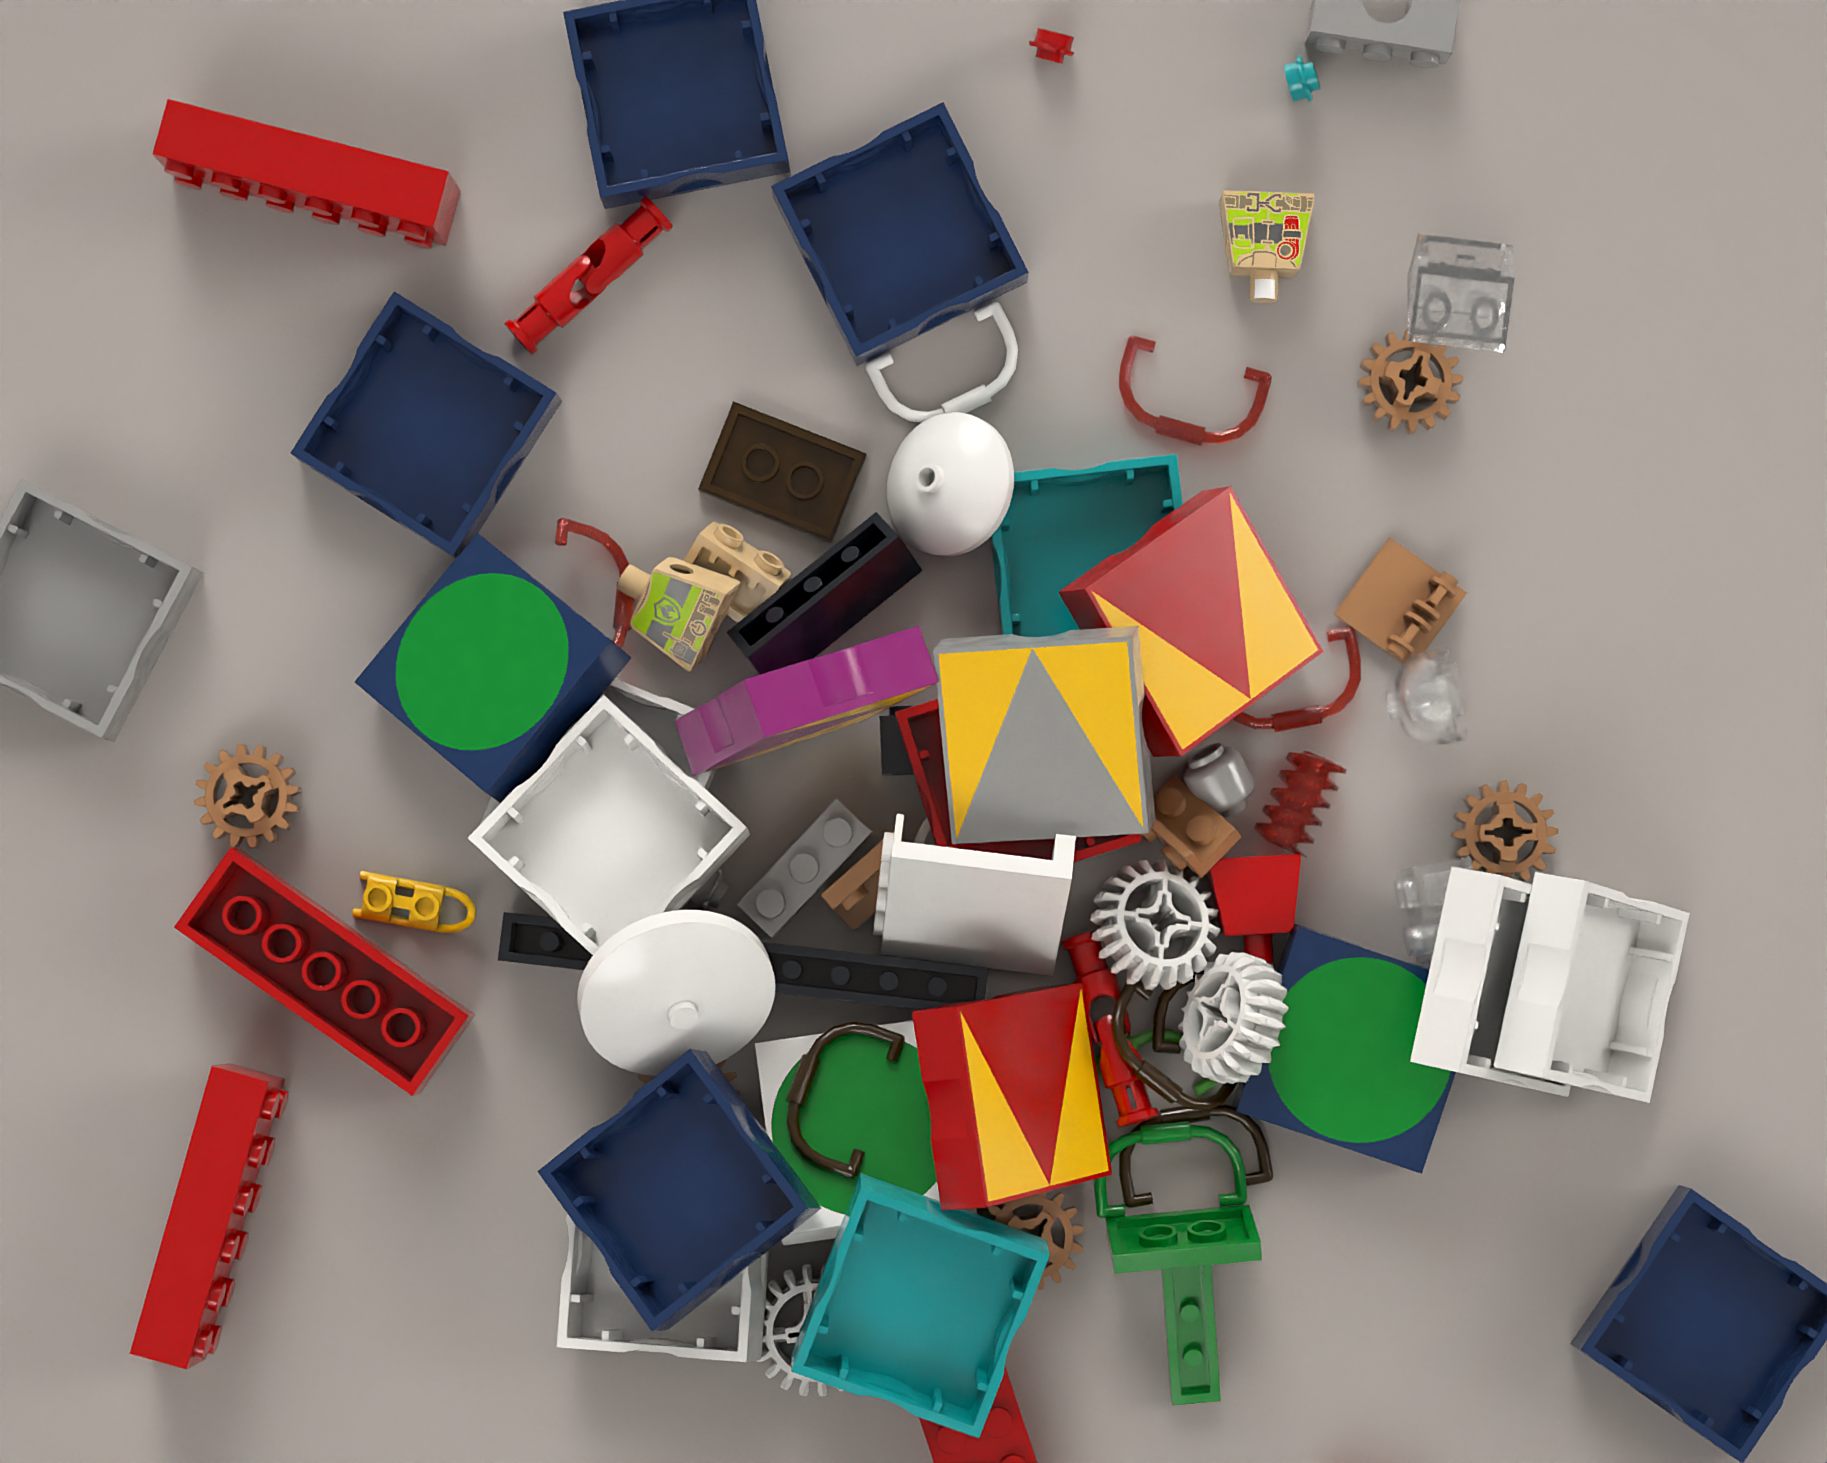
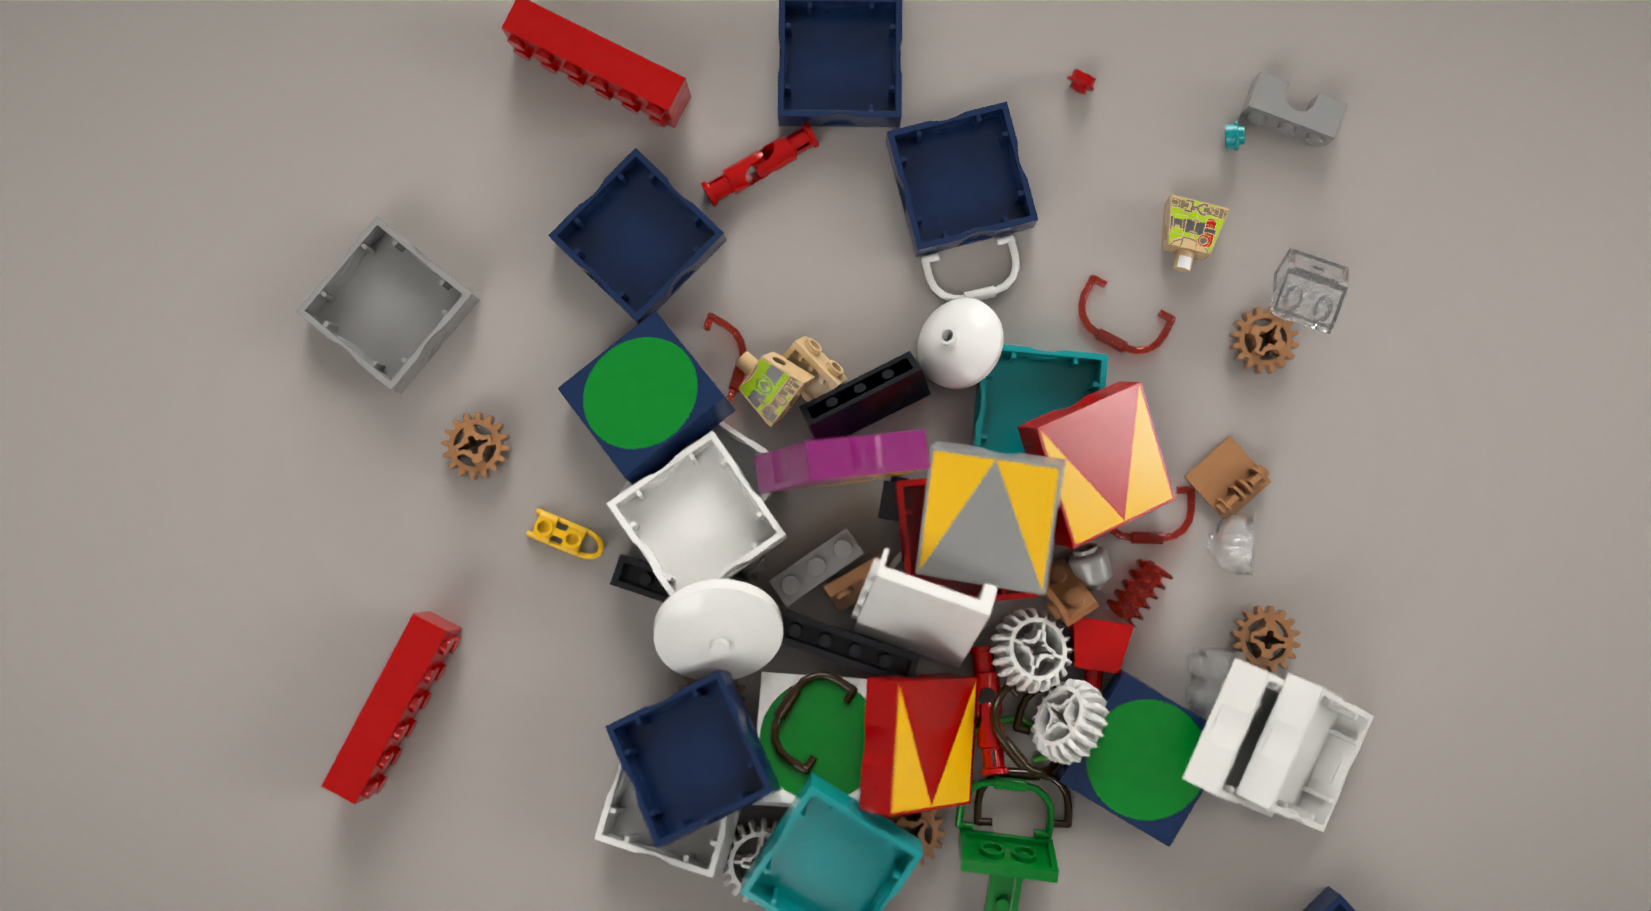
camera: 15 degrees right, 0 degrees up
(324, 971) = (499, 566): red brick -> none
(782, 472) = (855, 313): dark brown tile -> none

